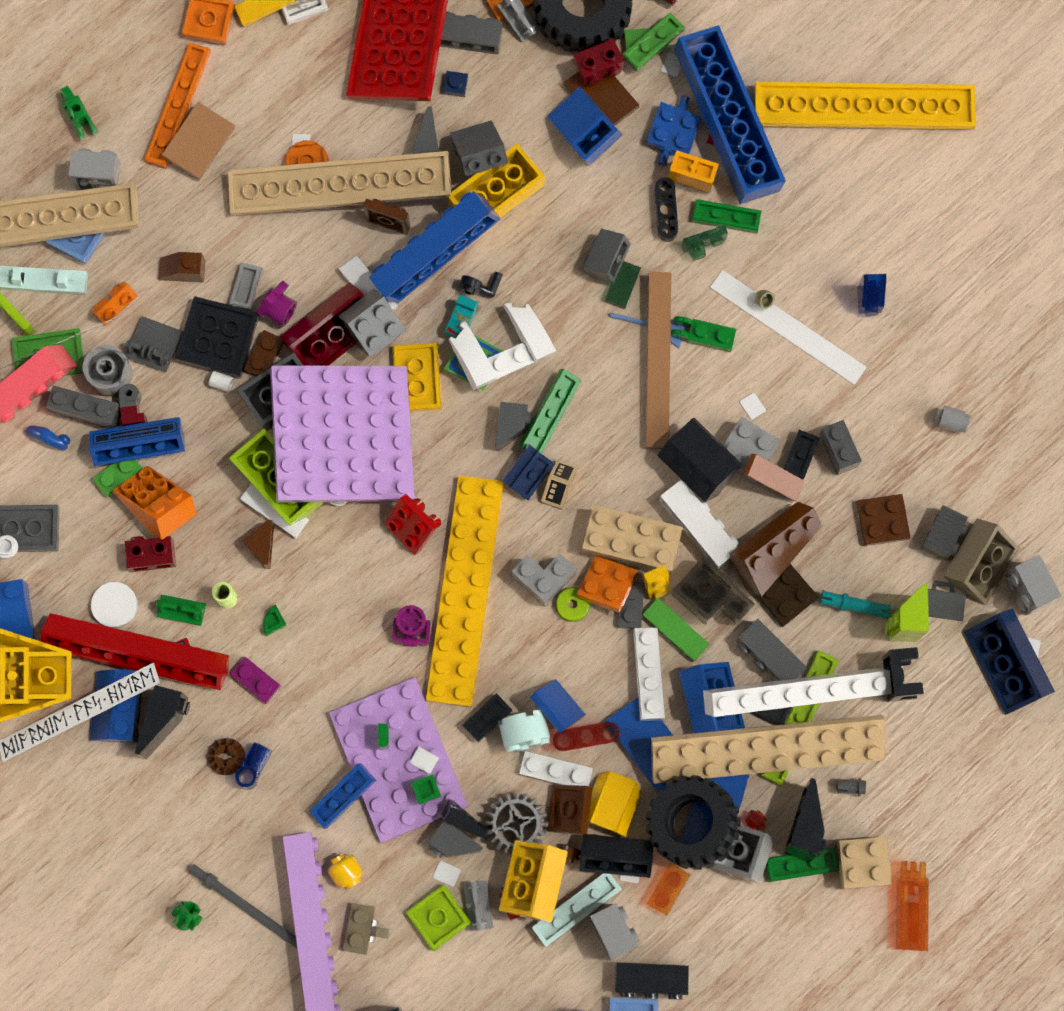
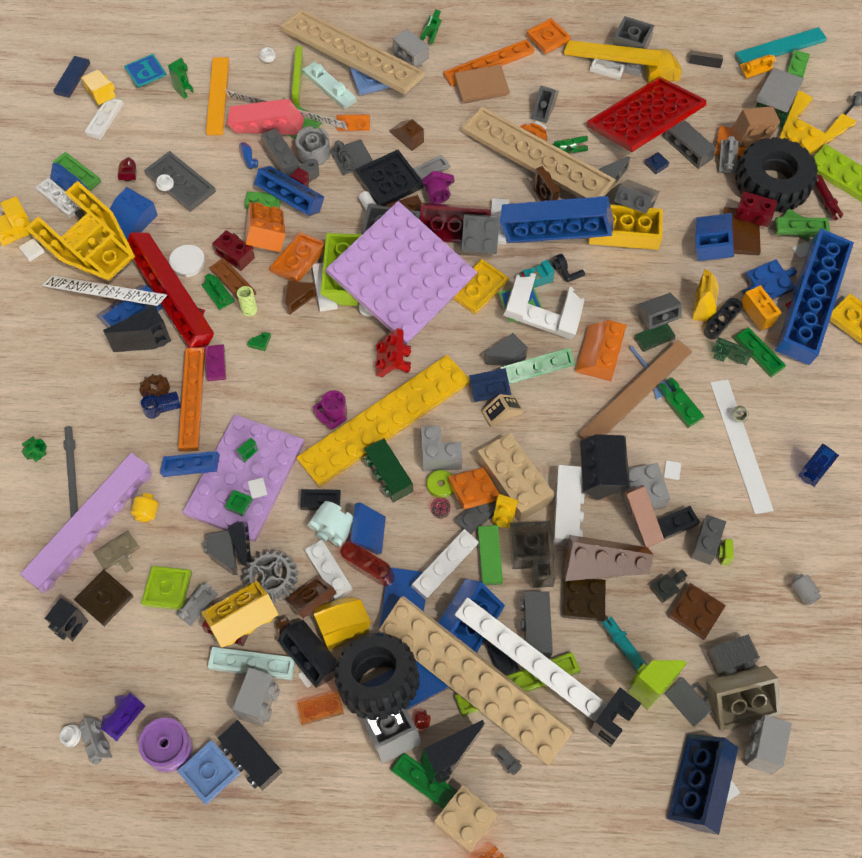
camera: 45 degrees right, 15 degrees down
(180, 584) = (229, 276): none -> dark orange tile
(219, 503) = (298, 257): none -> orange tile
(274, 734) = (191, 399): none -> orange plate
(285, 110) = (544, 103): none -> dark grey slope
(355, 140) = (570, 145): none -> green hinge
(393, 977) = (104, 598): none -> dark brown tile
(447, 873) = (200, 568): white sticker -> none
(518, 636) = (387, 470): none -> dark green brick
(590, 343) = (601, 349): none -> orange slope
(594, 626) = (440, 507): none -> clear pink tile
(635, 205) = (705, 297): none -> yellow slope
(842, 521) = (667, 587): none -> pearl dark grey plate
(863, 445) = (726, 552): none -> lime plate

